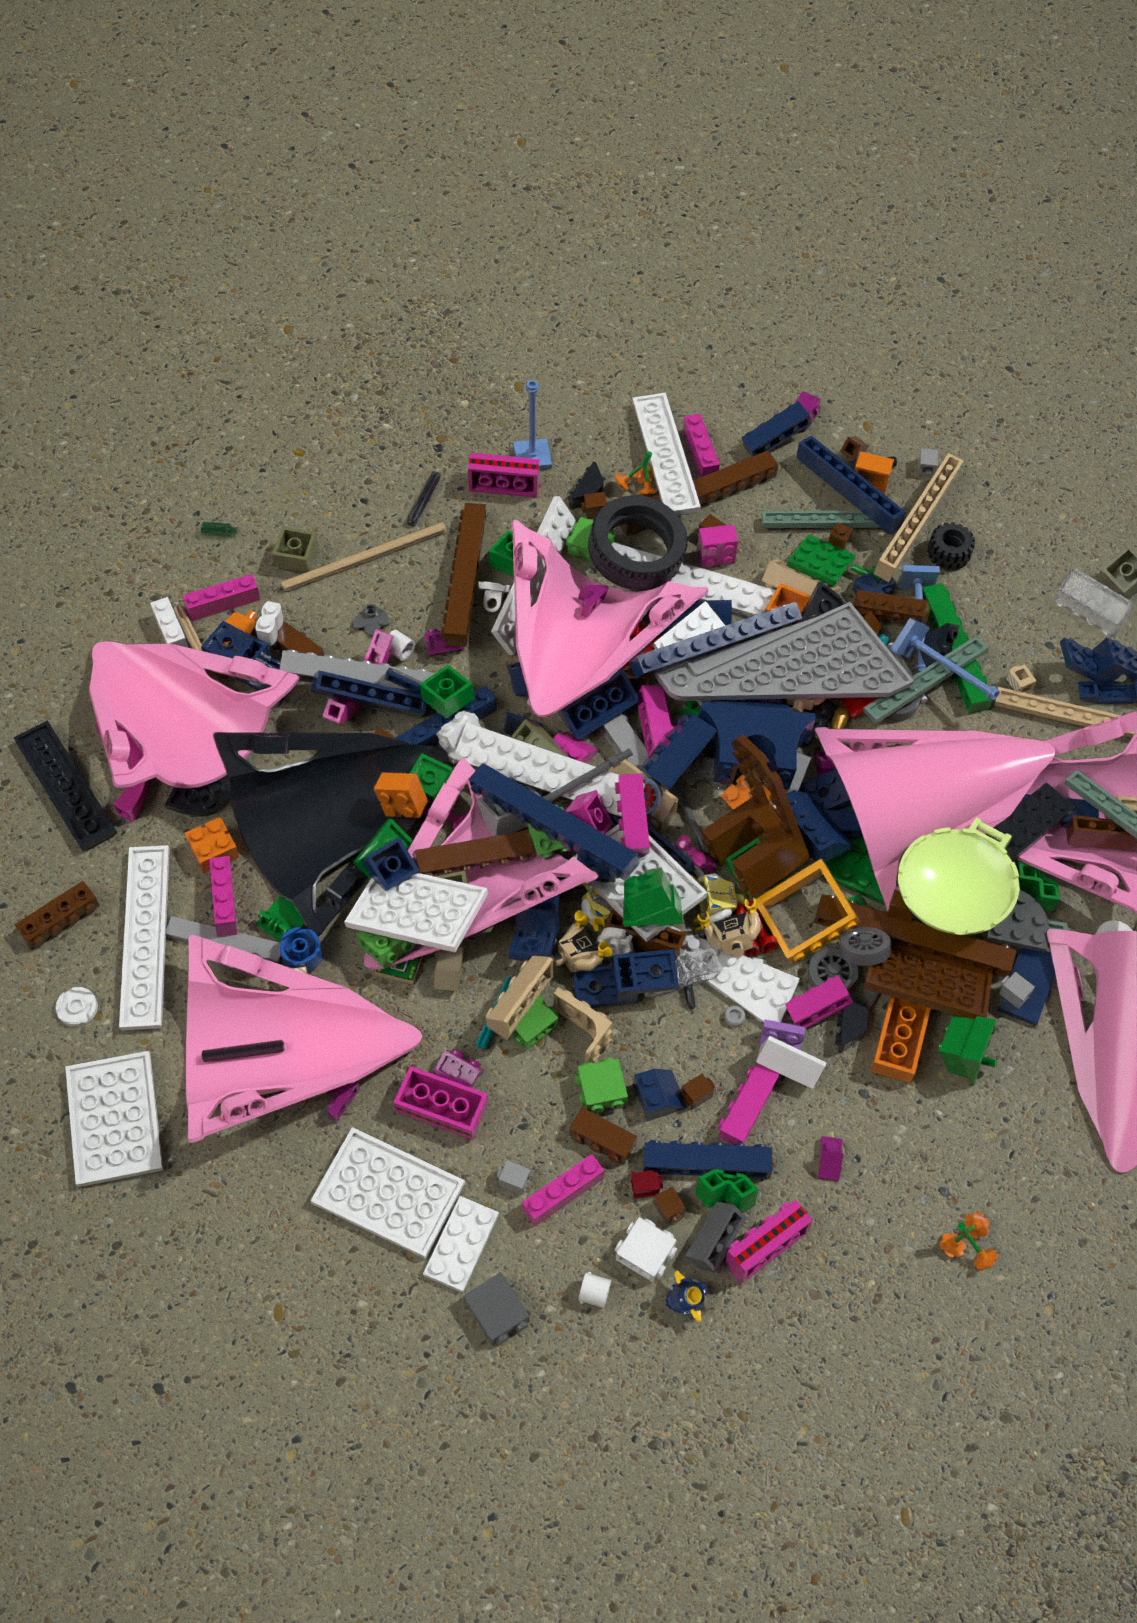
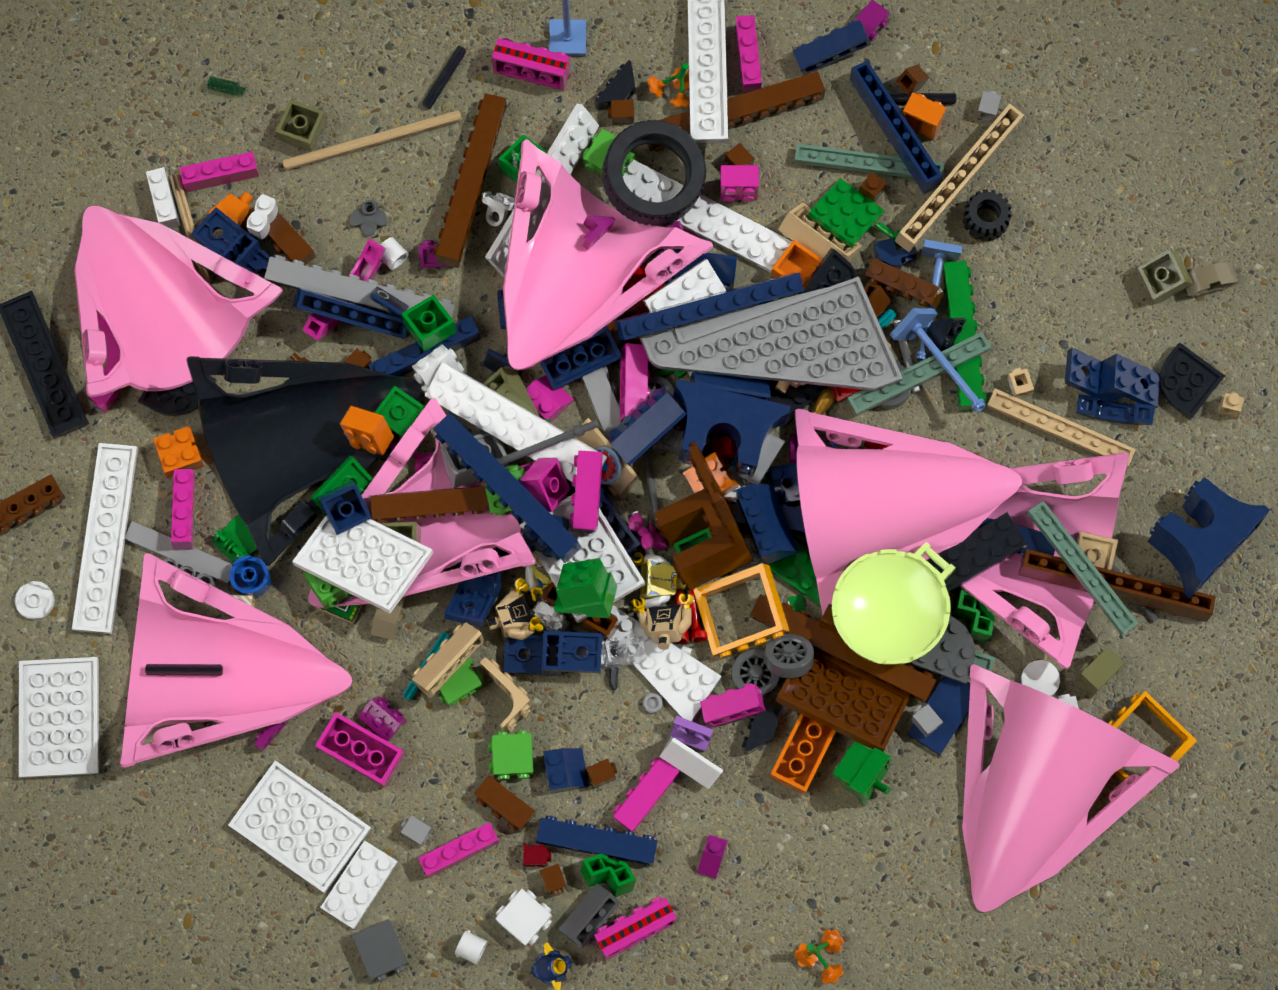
camera: 10 degrees right, 15 degrees up
(1094, 603) = (1118, 306): clear slope -> none

